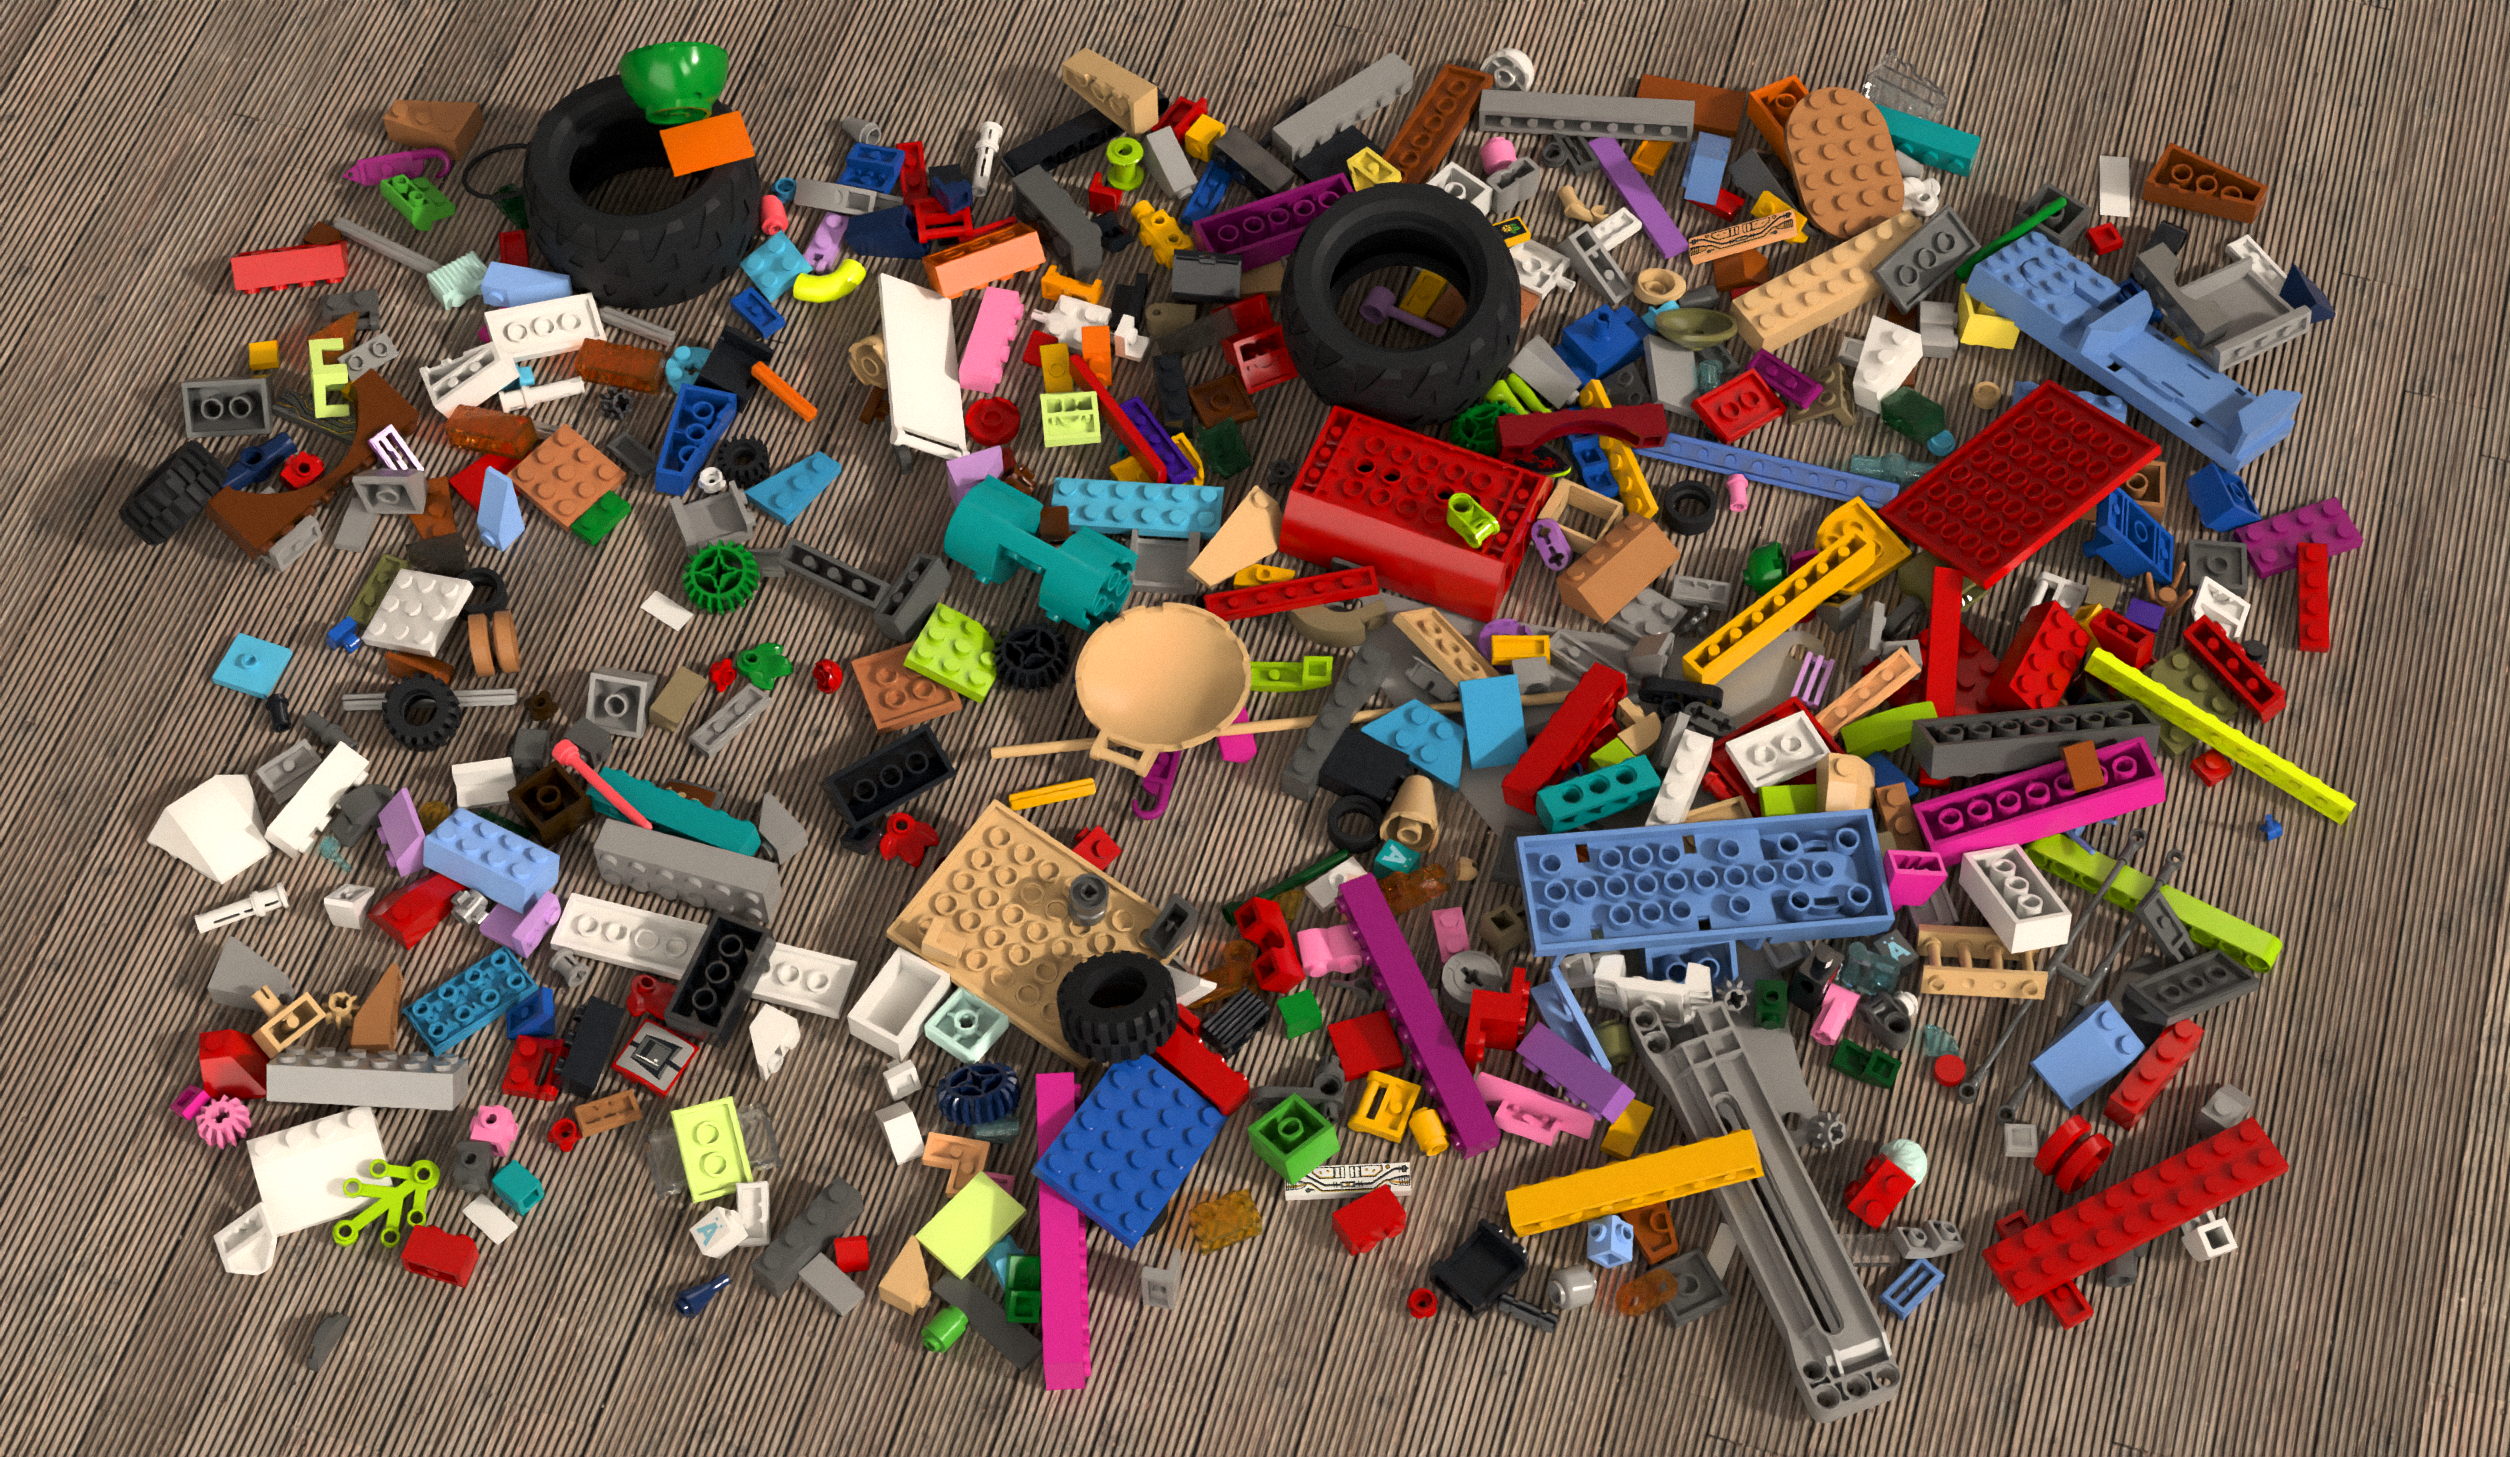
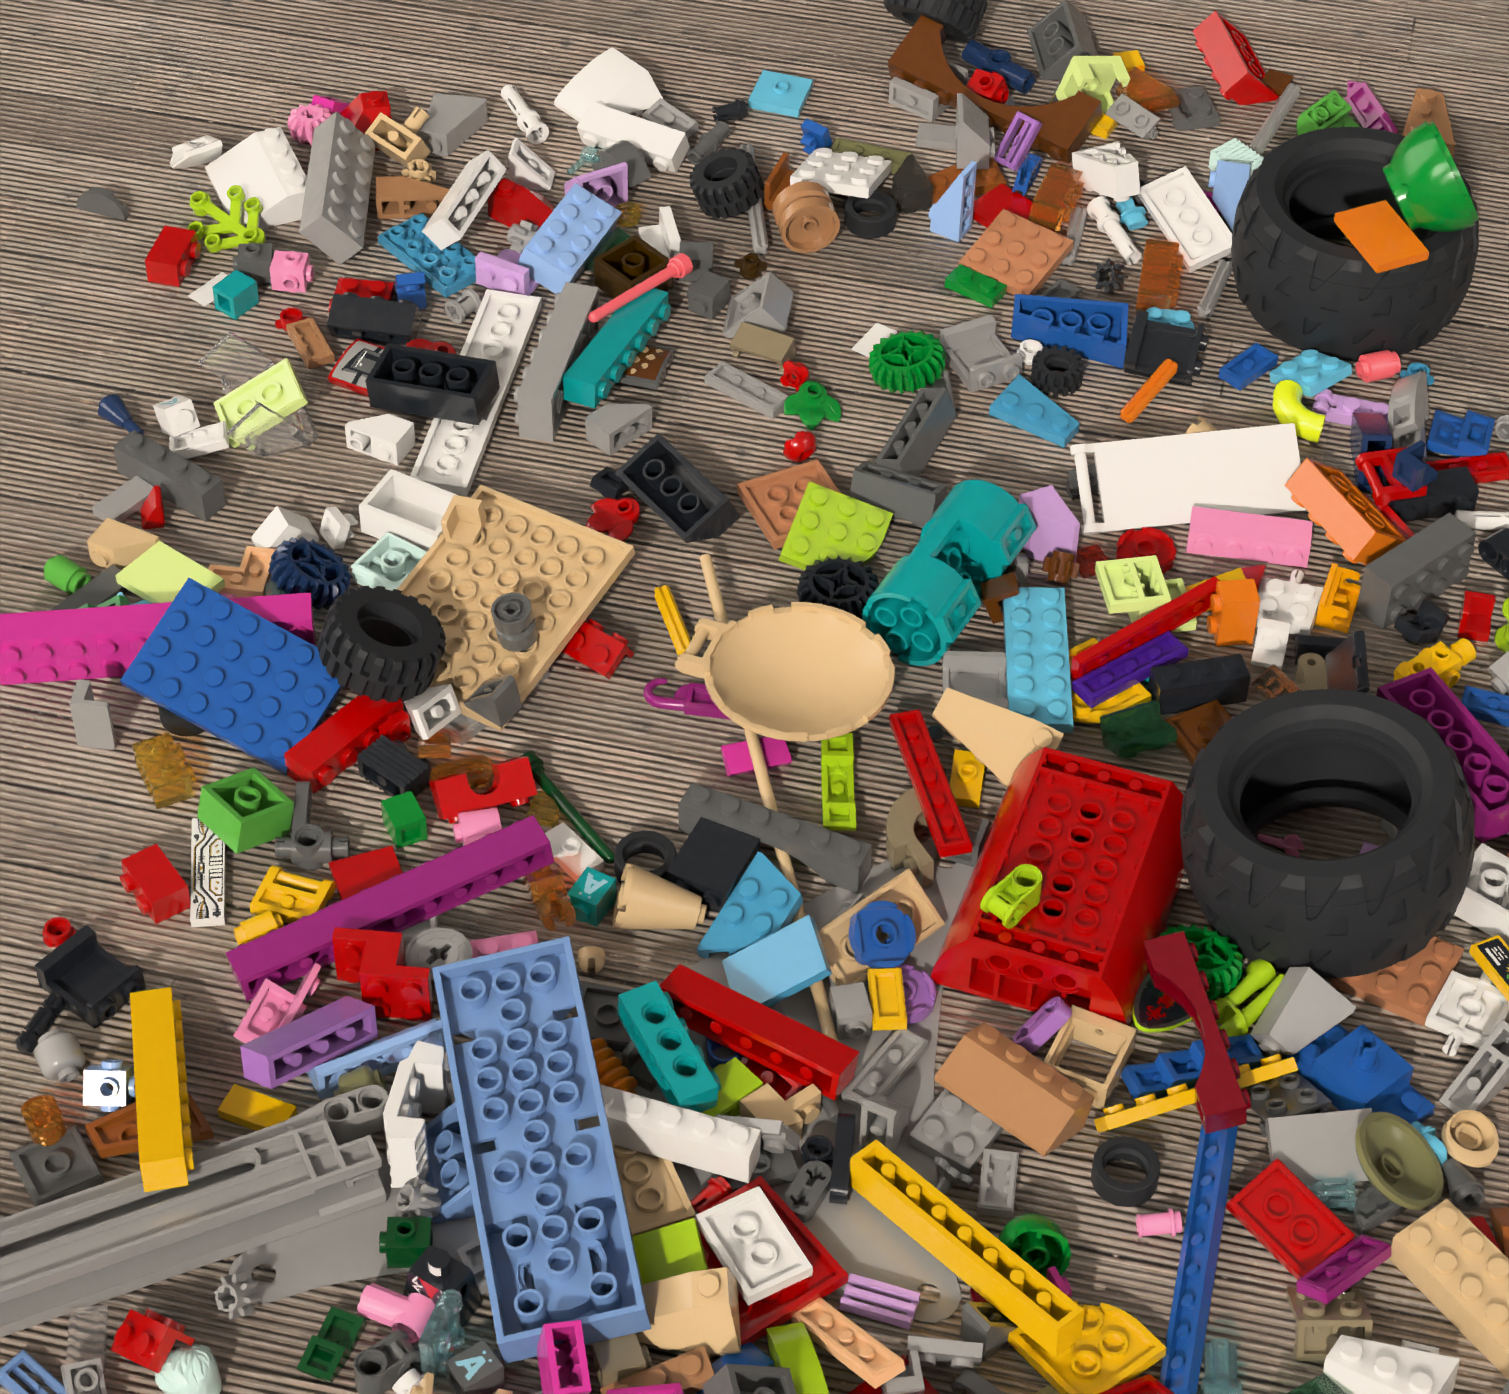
camera: 85 degrees right, 10 degrees down
(423, 949) = (464, 200): none -> white brick
(444, 453) = (1027, 173): none -> blue piece
(1463, 643) = (863, 938): none -> blue plate

